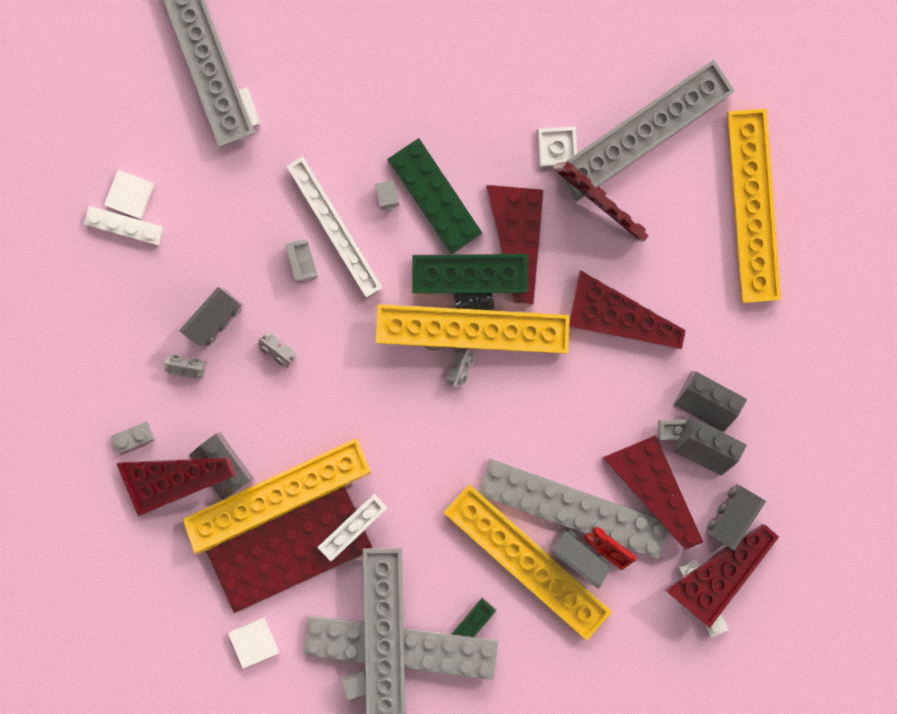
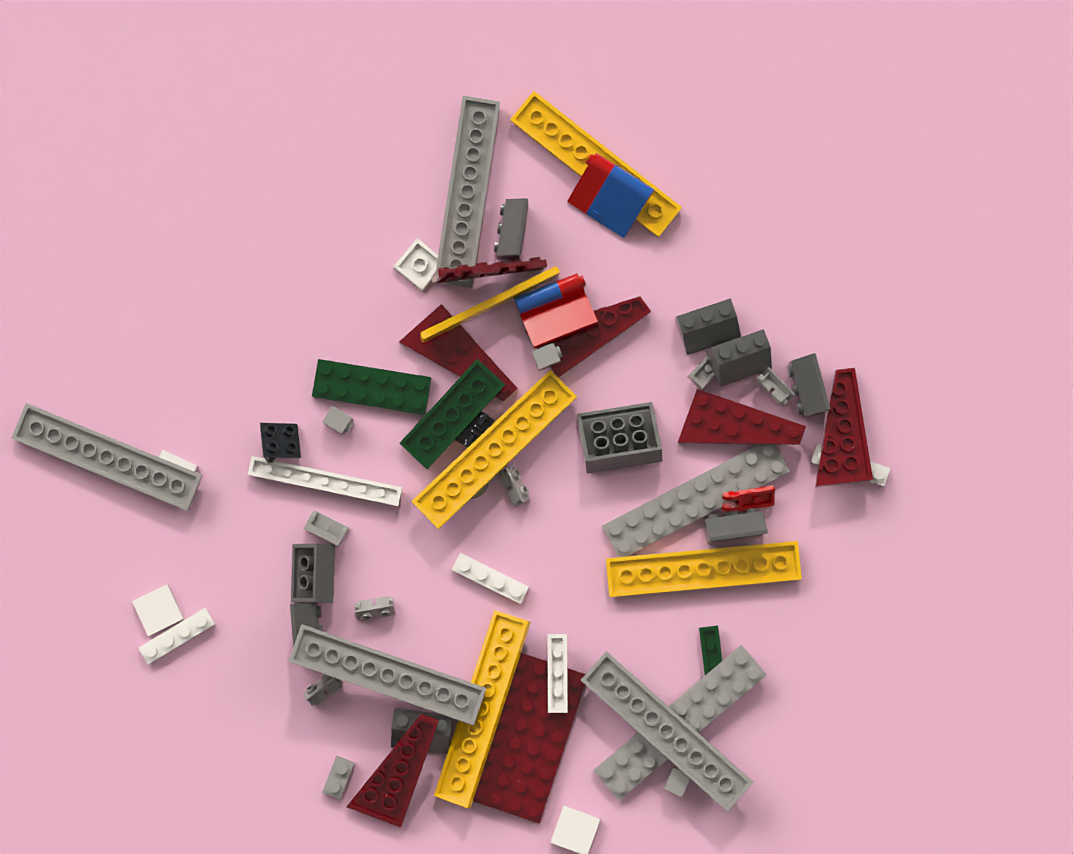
camera: 45 degrees left, 5 degrees down
(234, 405) = (387, 674): none -> light grey plate
(259, 281) = (312, 573): none -> dark grey slope
(332, 166) = (279, 441): none -> black hinge
(376, 413) = (490, 578): none -> white plate
(567, 412) = (619, 437): none -> dark grey slope
(576, 225) = (489, 304): none -> yellow tile
(577, 304) = (547, 356): none -> light grey brick
(617, 278) = (556, 310): none -> door
(648, 188) = (511, 229): none -> dark grey slope
(711, 497) = (780, 391): none -> light grey hinge
(741, 237) = (610, 194): none -> blue door

